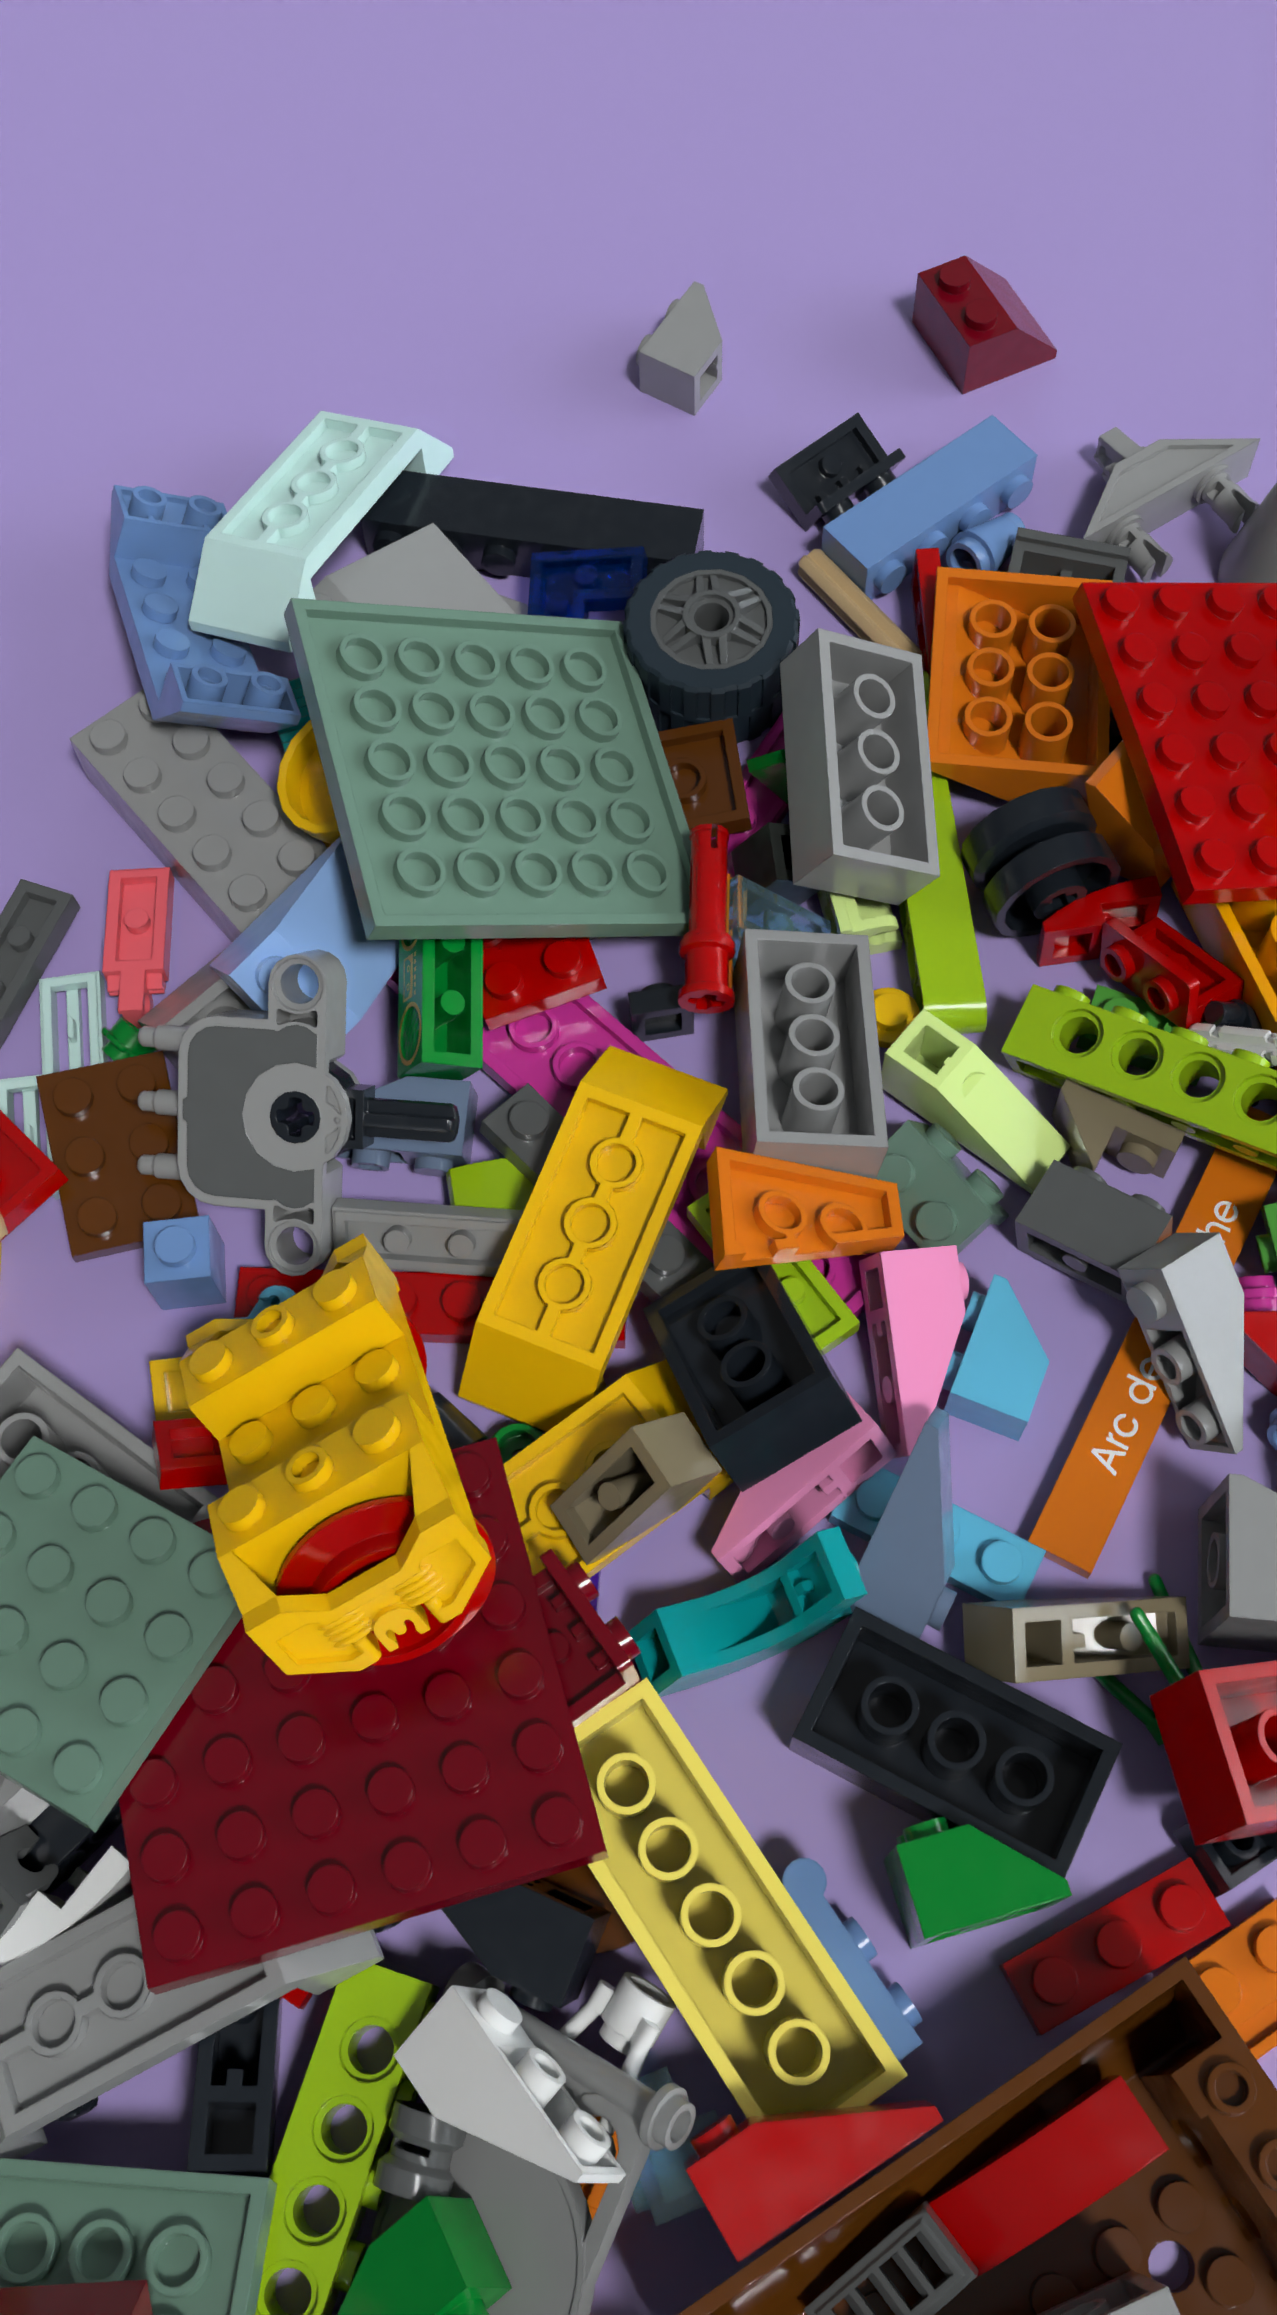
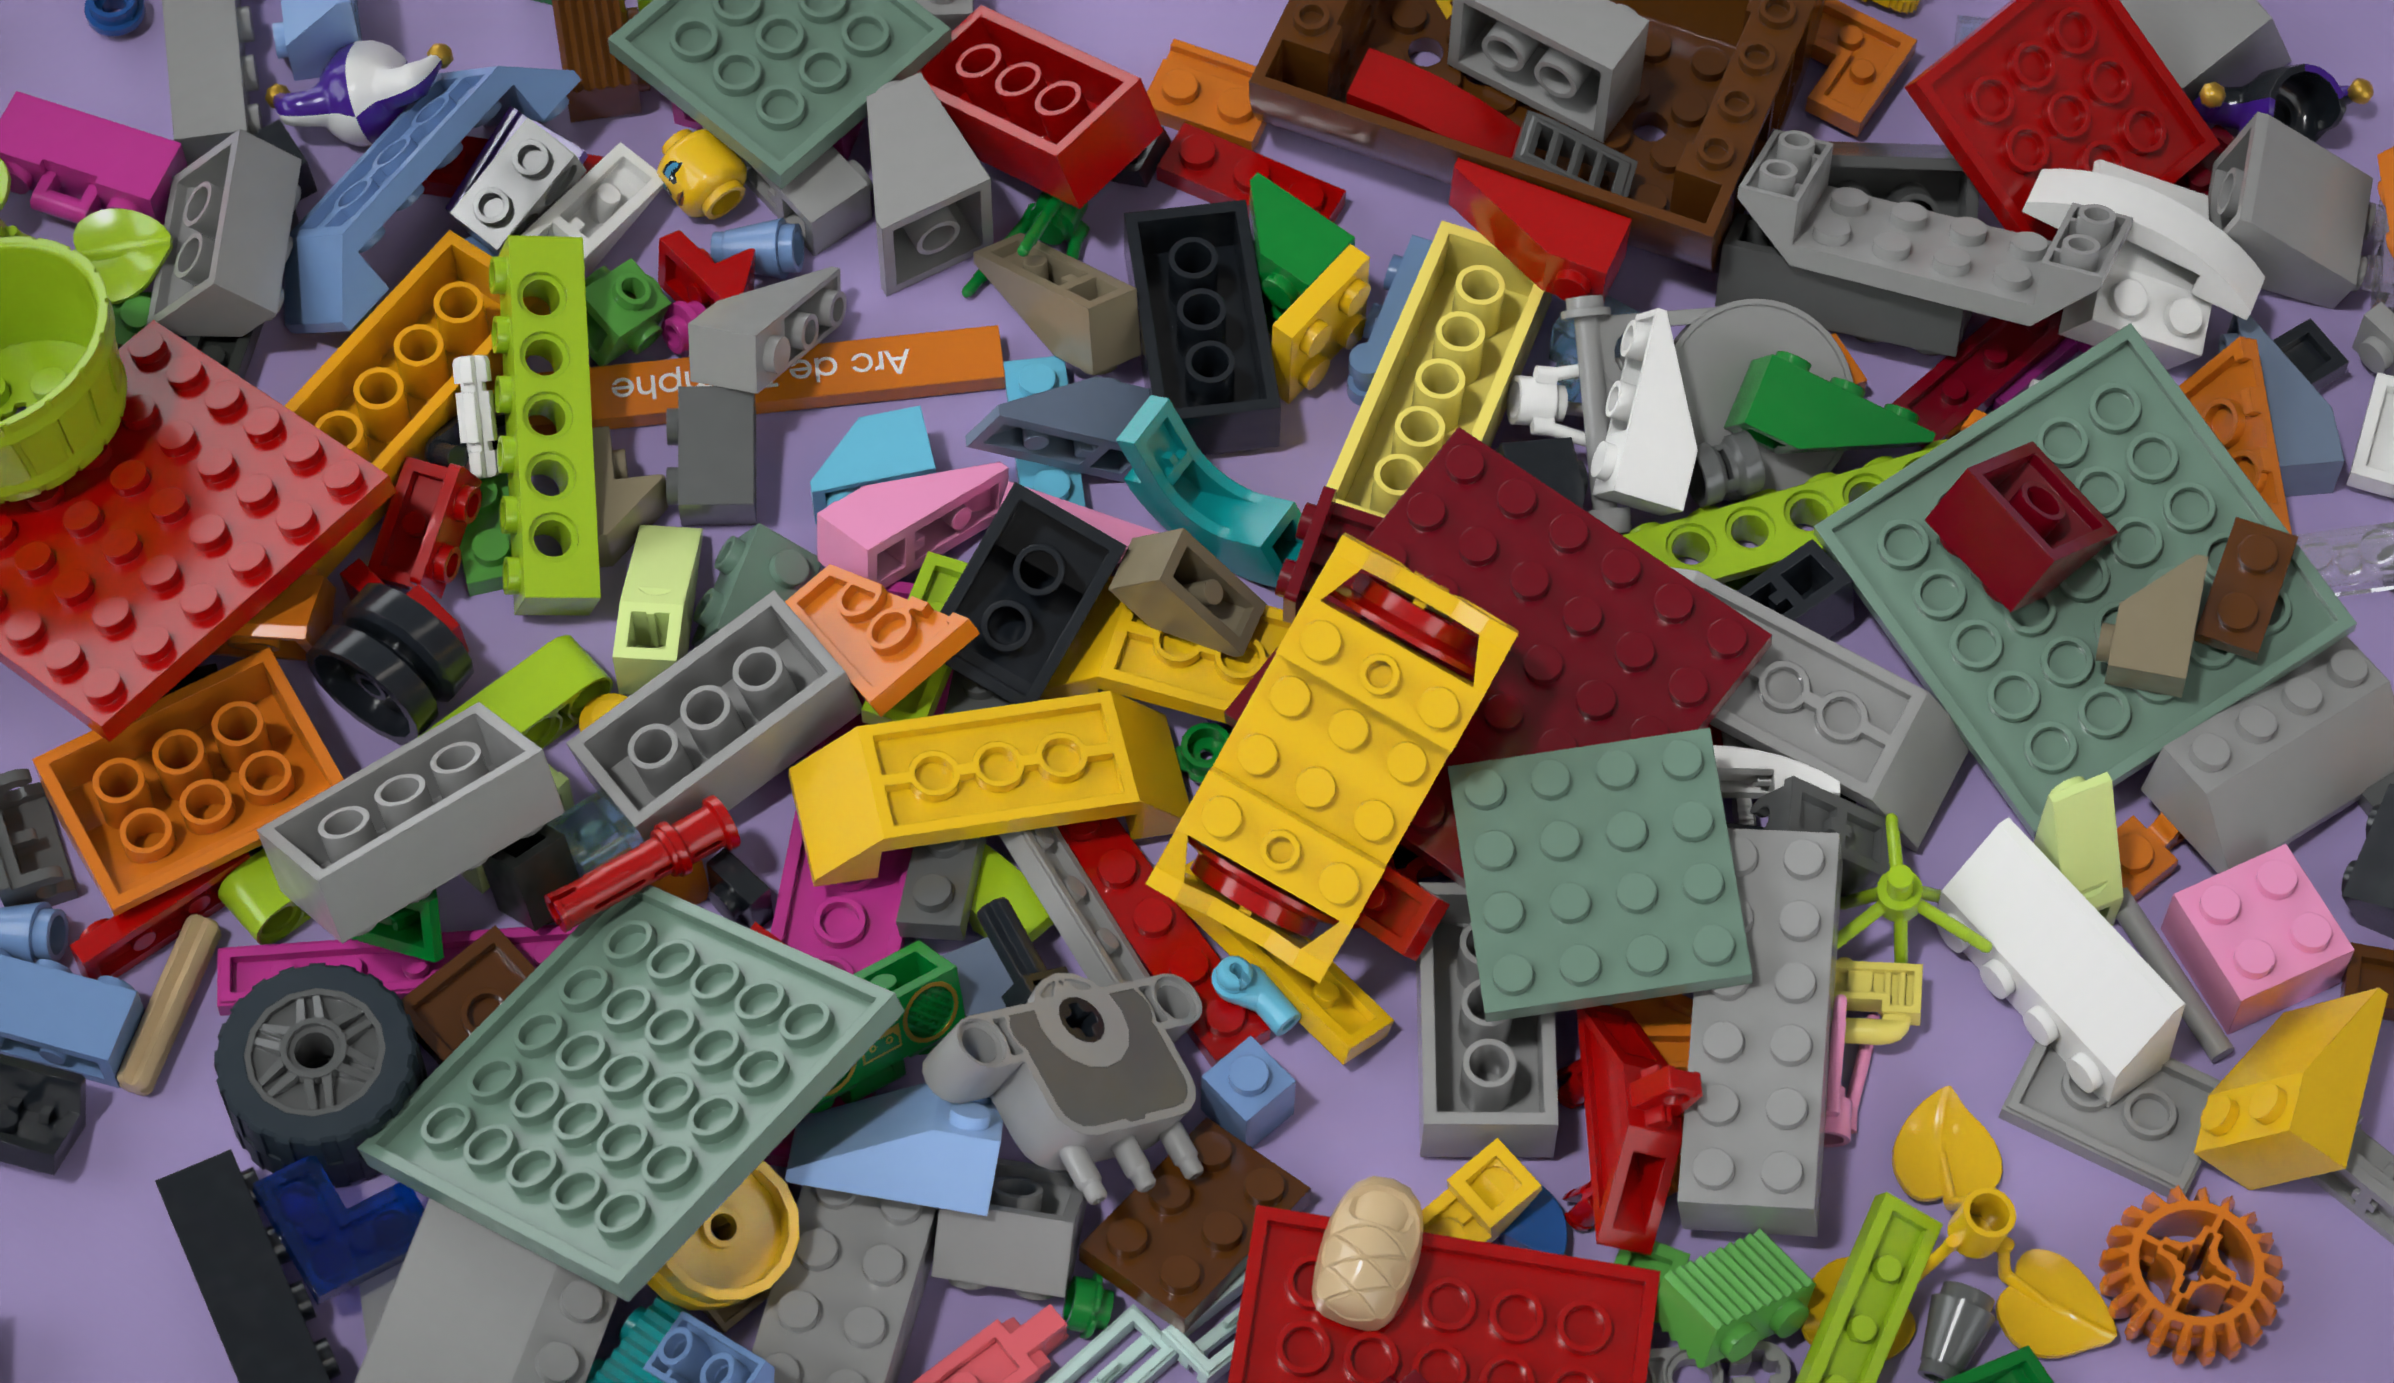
camera: 130 degrees left, 5 degrees down
(863, 1831) = (1321, 324): none -> yellow plate

